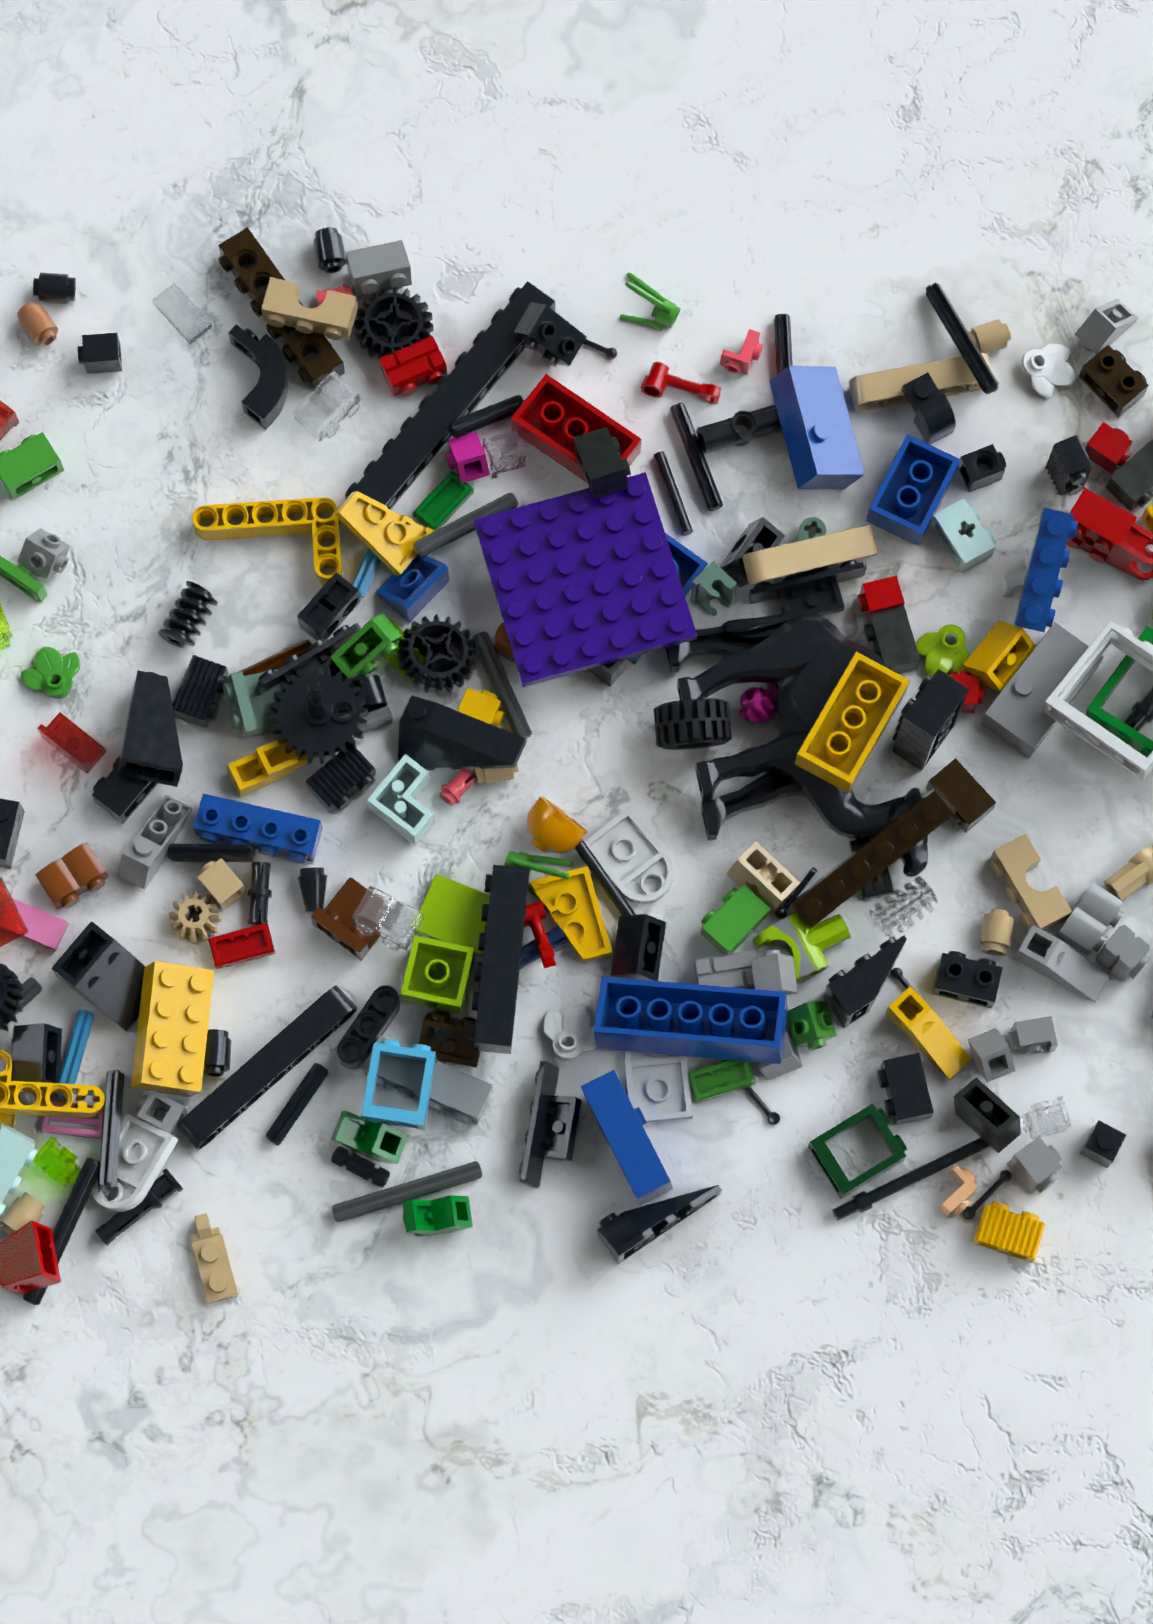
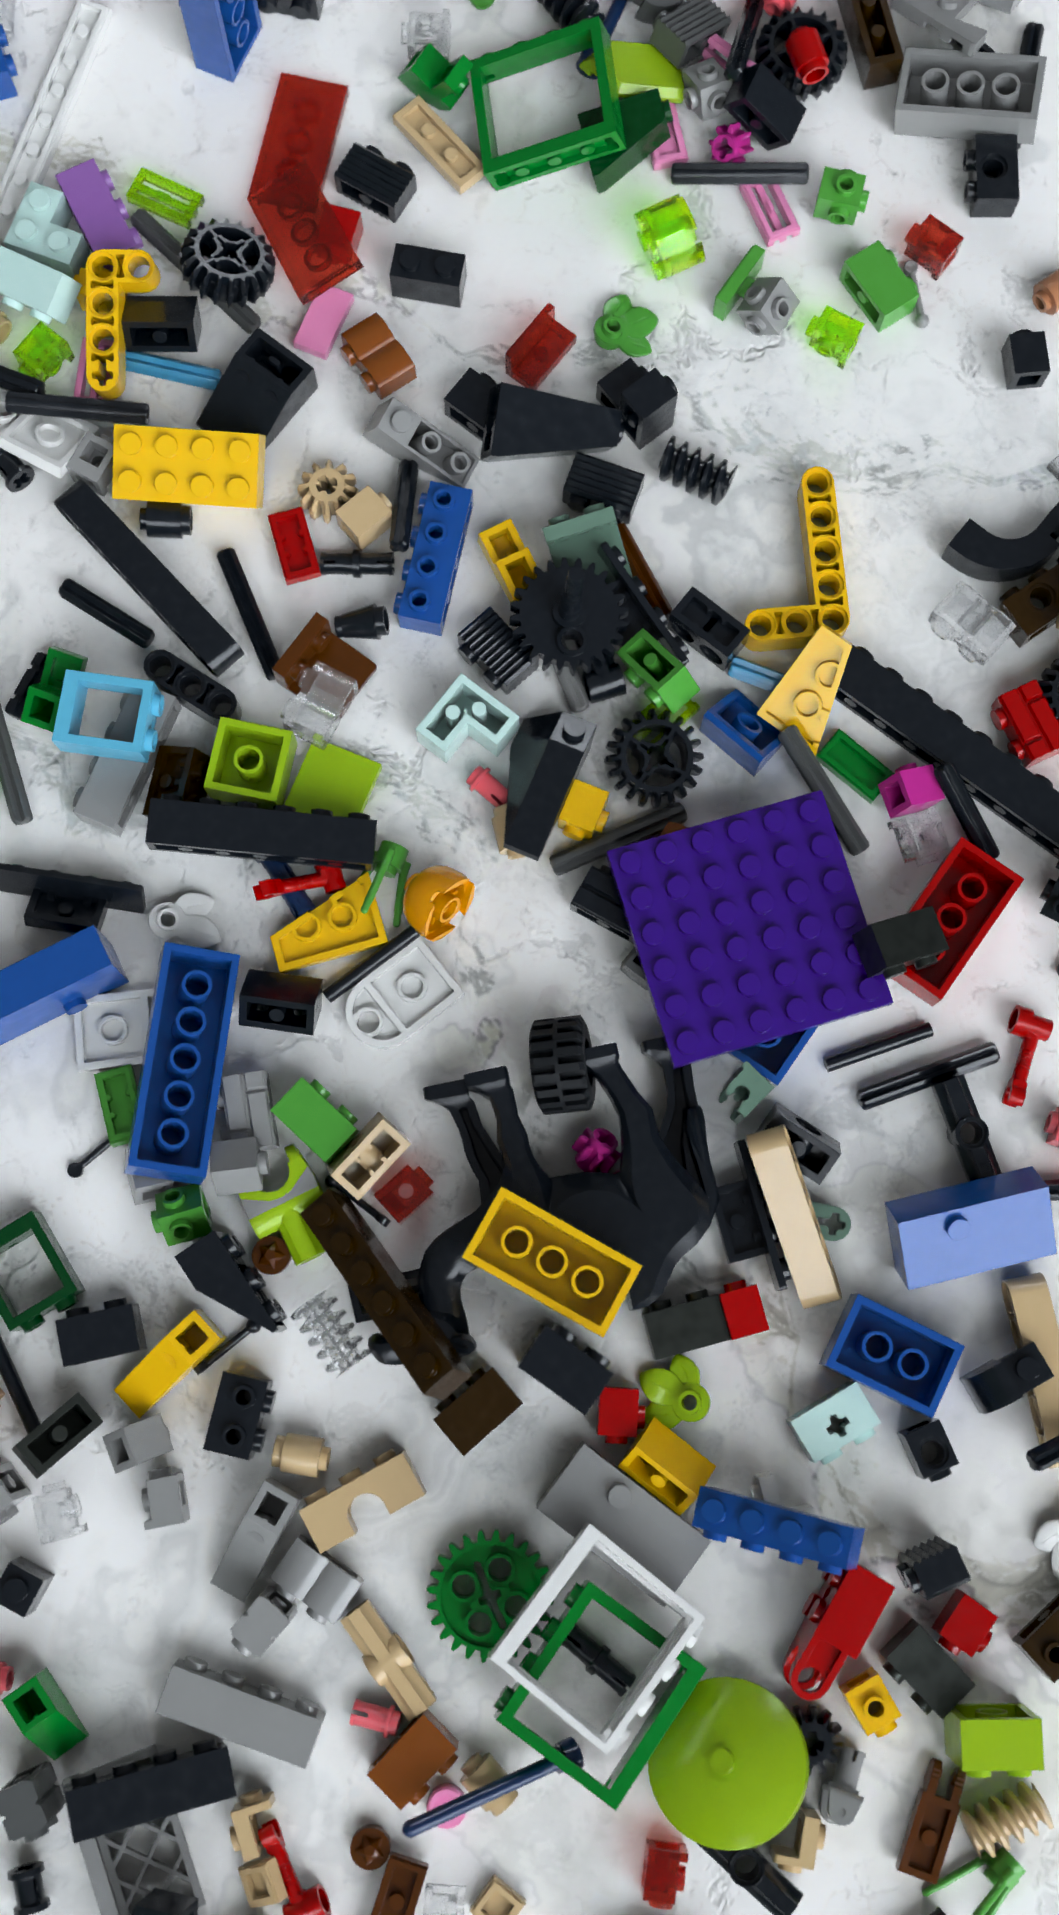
camera: 90 degrees right, 5 degrees up
(8, 441) = (910, 269): none -> light grey hinge
(71, 502) = (834, 334): none -> clear neon green brick
(119, 665) = (644, 398): none -> black brick
(300, 983) = (249, 610): none -> black axle
(555, 697) = (600, 902): none -> black brick
(795, 862) = (400, 1207): none -> clear red brick
(841, 958) = (271, 1255): none -> reddish brown tile
(1110, 813) = (457, 1608): none -> green gear

